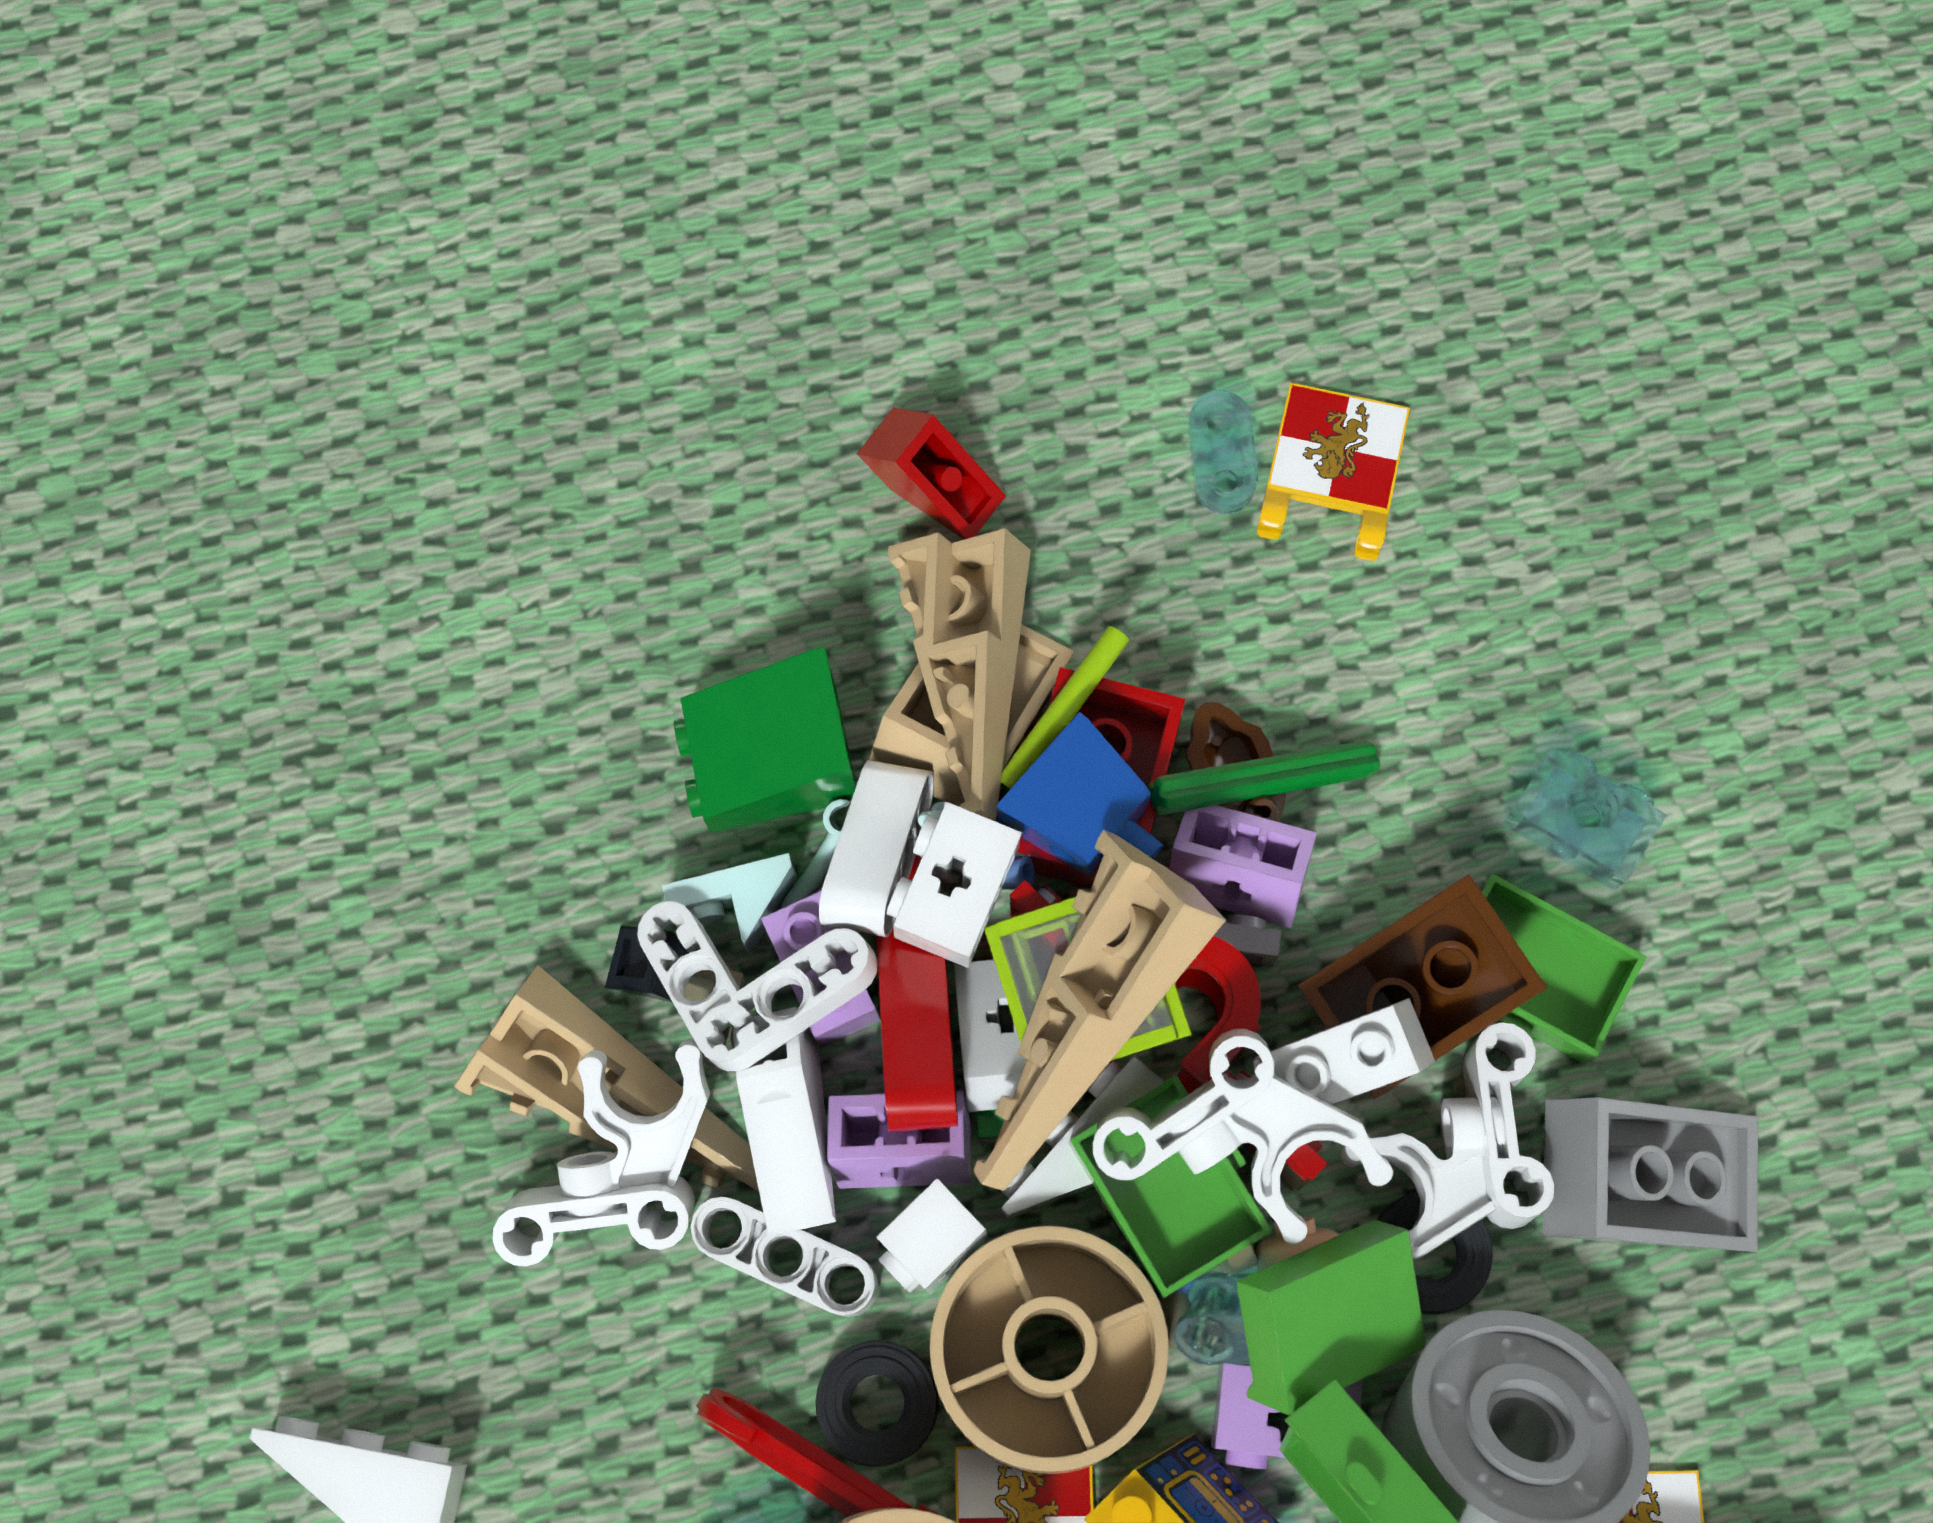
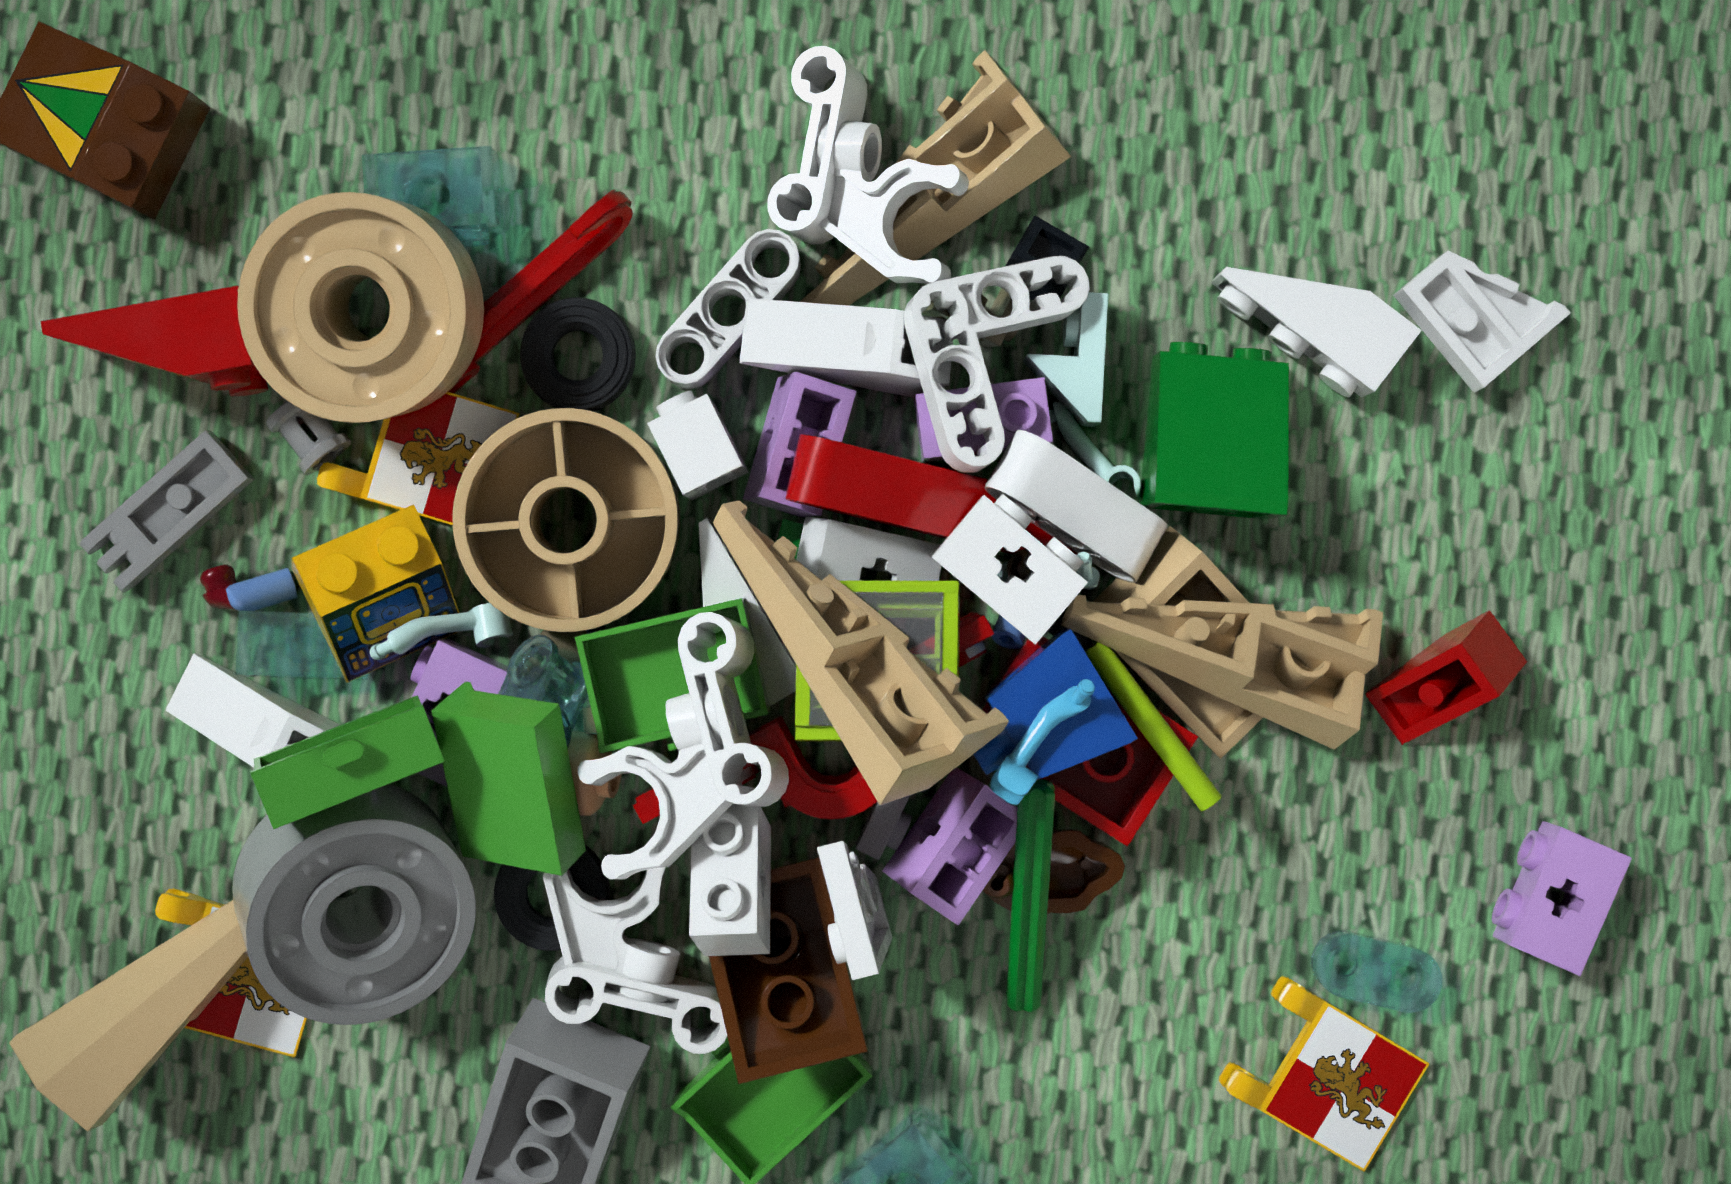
camera: 95 degrees right, 15 degrees up
(588, 550) = (1476, 317): none -> white wing
(633, 669) = (1336, 326): none -> white slope
(1075, 295) = (1566, 930): none -> lavender brick
(1155, 815) = (1012, 777): none -> medium azure piece
(1180, 1410) = (483, 619): none -> light aqua piece
(1343, 927) = (861, 923): none -> white wing

